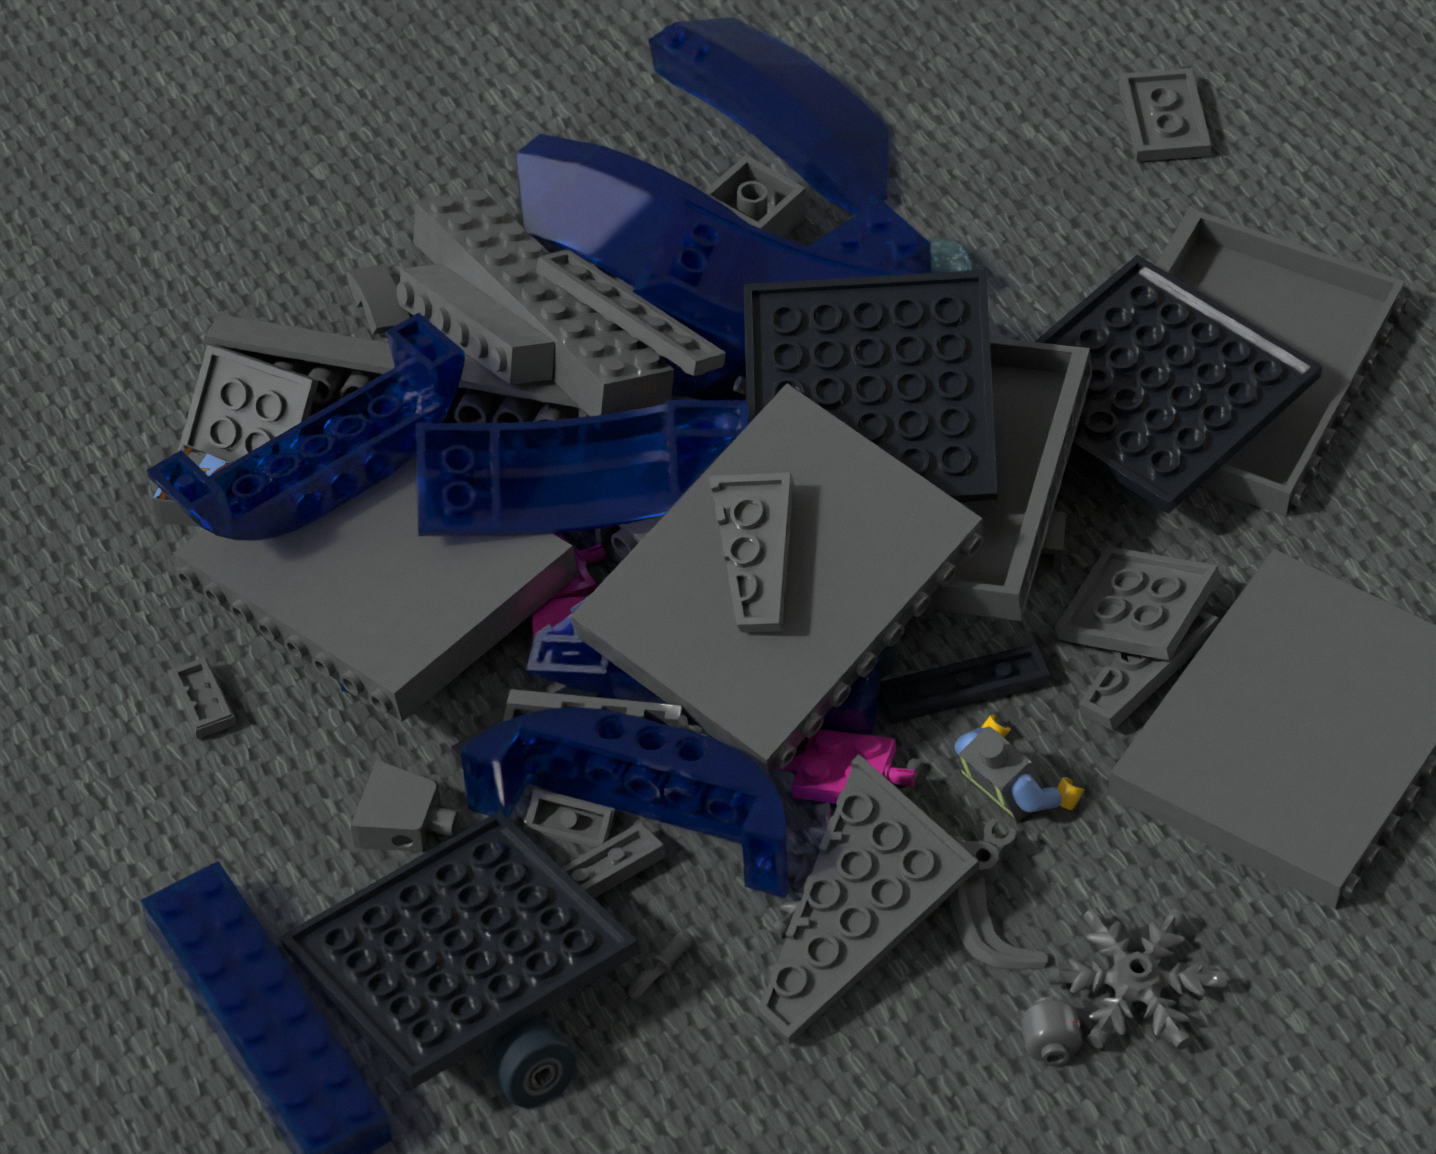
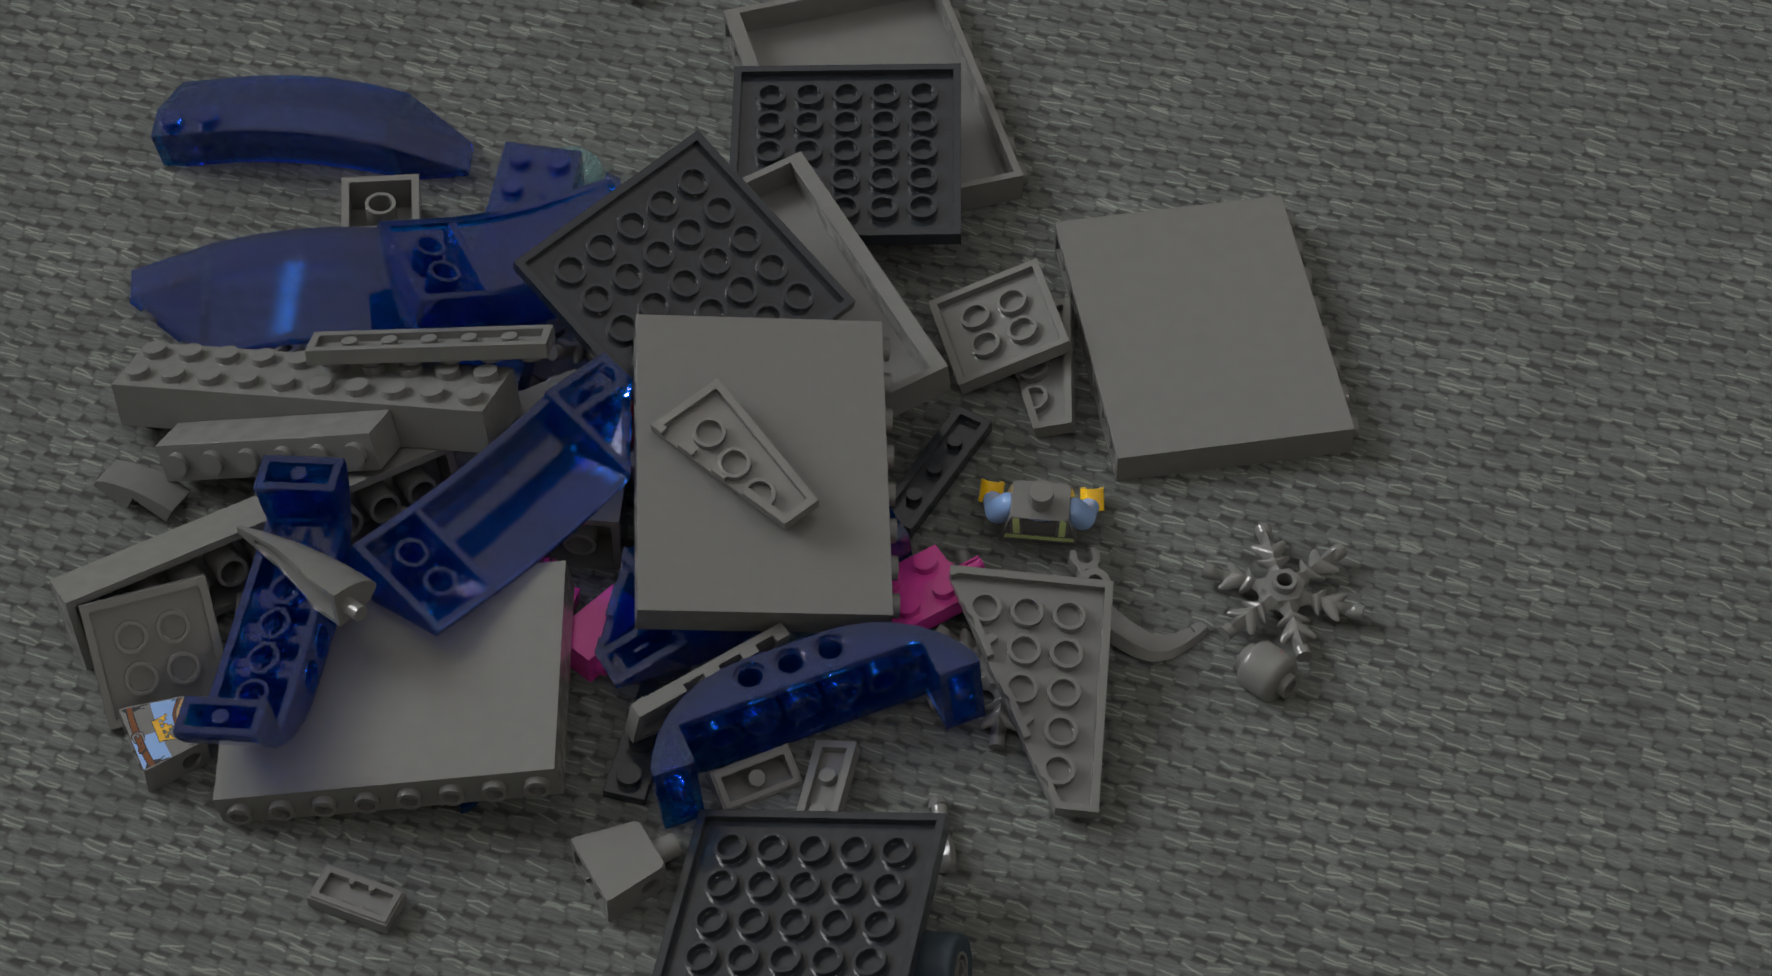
camera: 45 degrees left, 0 degrees up
(372, 430) = (325, 582): none -> dark grey piece

